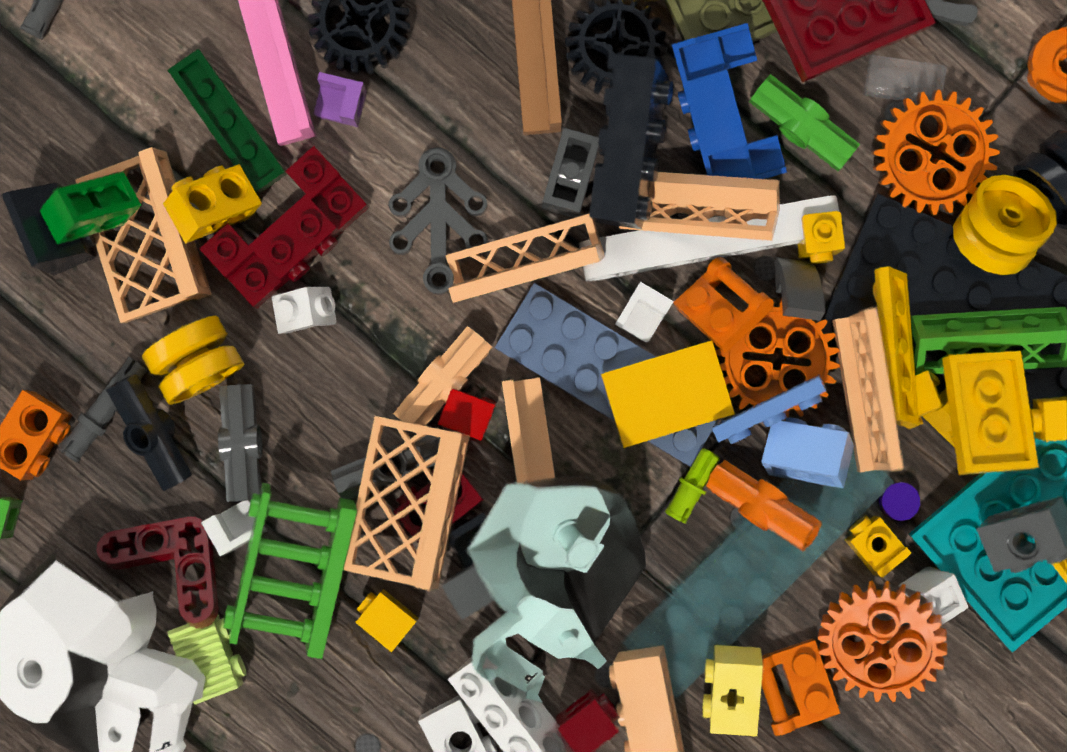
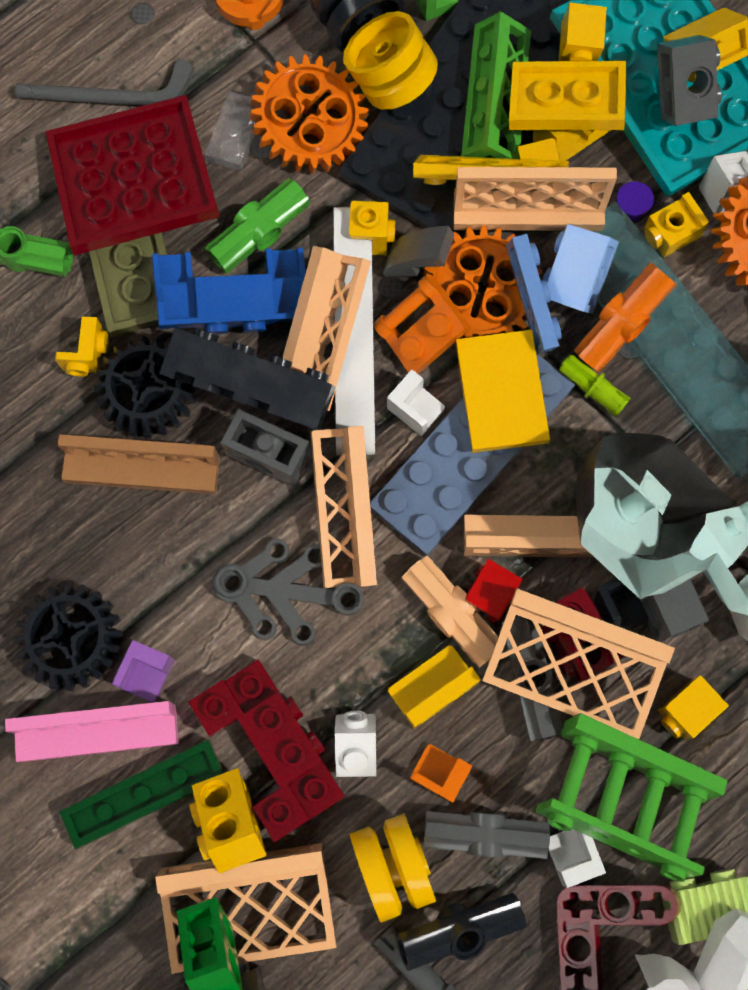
camera: 75 degrees left, 10 degrees down
(289, 392) = (440, 773): none -> orange panel
(369, 373) = (433, 686): none -> yellow panel

